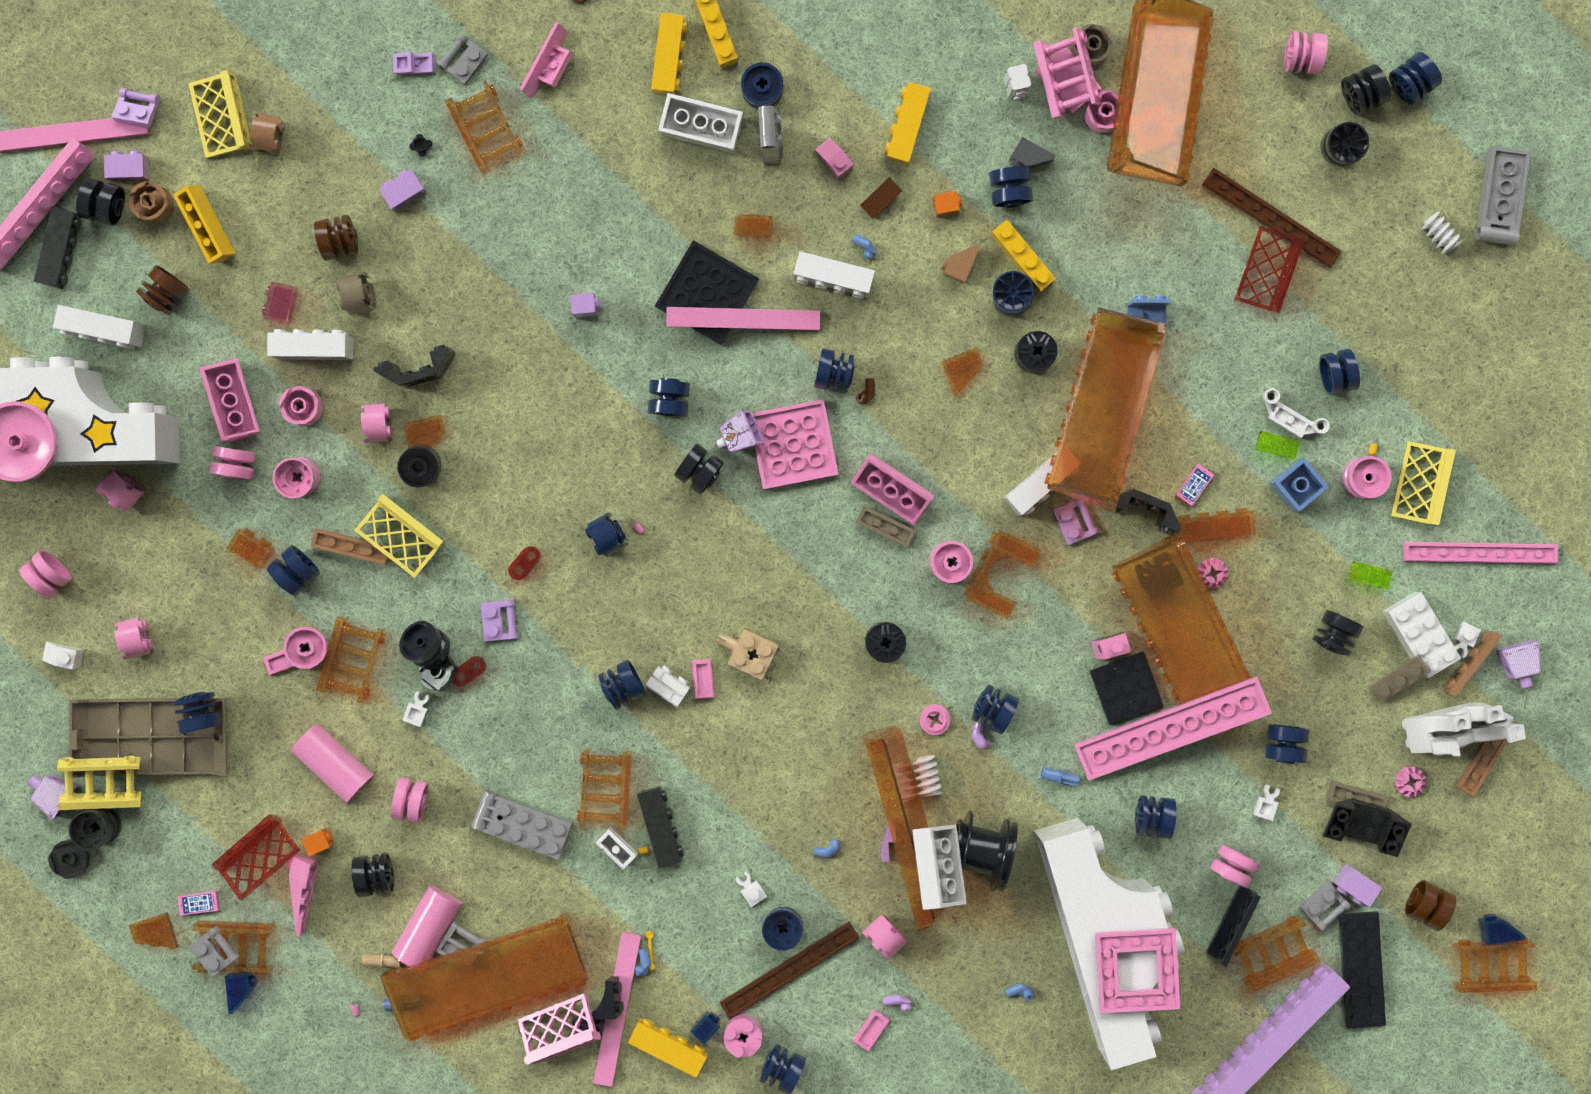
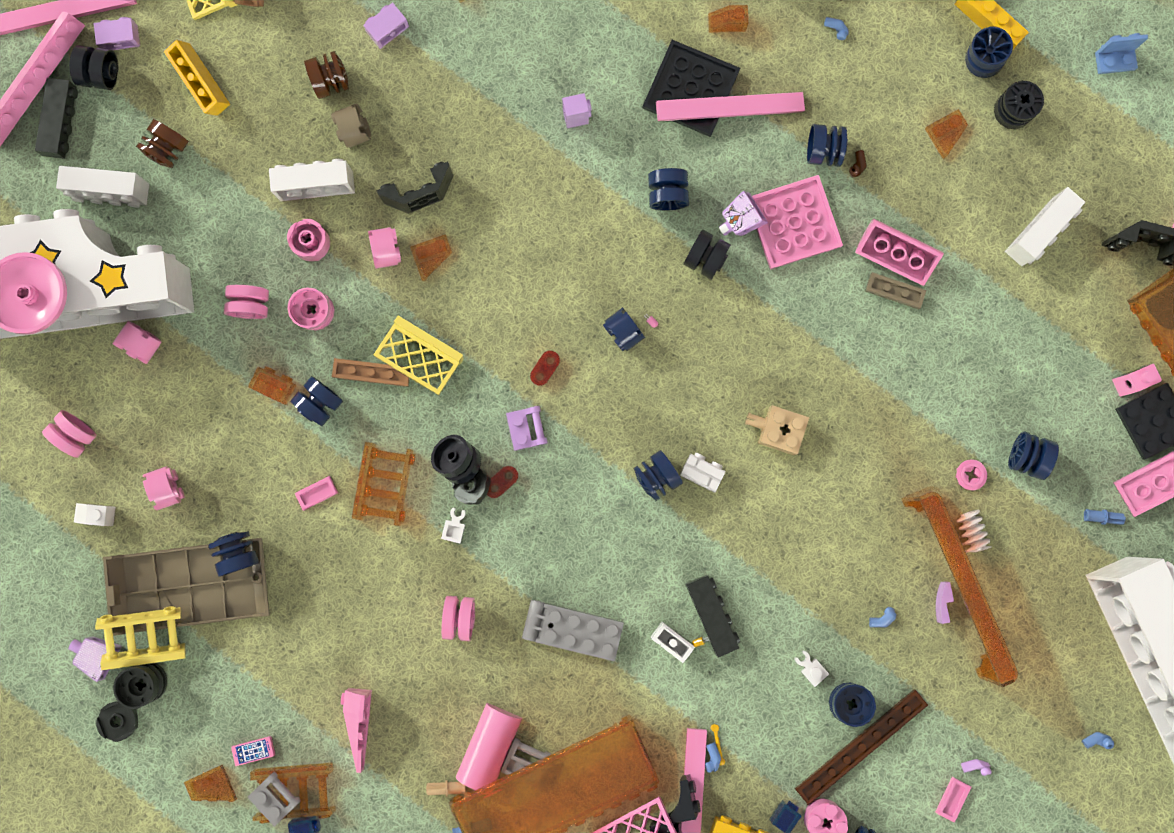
camera: 10 degrees left, 5 degrees down
(151, 202) = (143, 63): medium nougat brick -> none
(229, 401) = (238, 243): bright pink brick -> none
(249, 842) = (294, 686): clear red fence -> none
(279, 303) = (277, 145): clear pink piece -> none
(305, 636) = (332, 466): bright pink wheel -> none
(318, 841) = (369, 672): orange brick -> none
(331, 762) = (374, 590): bright pink brick -> none
(372, 874) = (428, 699): black wheel -> none
(419, 465) = (431, 283): black wheel -> none
(621, 798) = (669, 591): clear orange fence -> none
(703, 678) = (735, 462): bright pink tile -> none
(833, 274) = (813, 54): white brick -> none
(875, 636) = (902, 402): black wheel -> none
(885, 936) = (957, 699): bright pink brick -> none
(939, 867) = (1015, 618): white brick -> none
(960, 264) = (932, 32): medium nougat slope -> none
(962, 561) = (966, 316): bright pink wheel -> none
(978, 738) = (1018, 488): lavender arm -> none
(980, 590) = (998, 341): clear orange arch -> none
(987, 850) = (1055, 599): black wheel -> none
(1069, 522) = (1075, 268): lavender plate -> none
(1105, 408) = (1101, 146): clear orange windscreen -> none

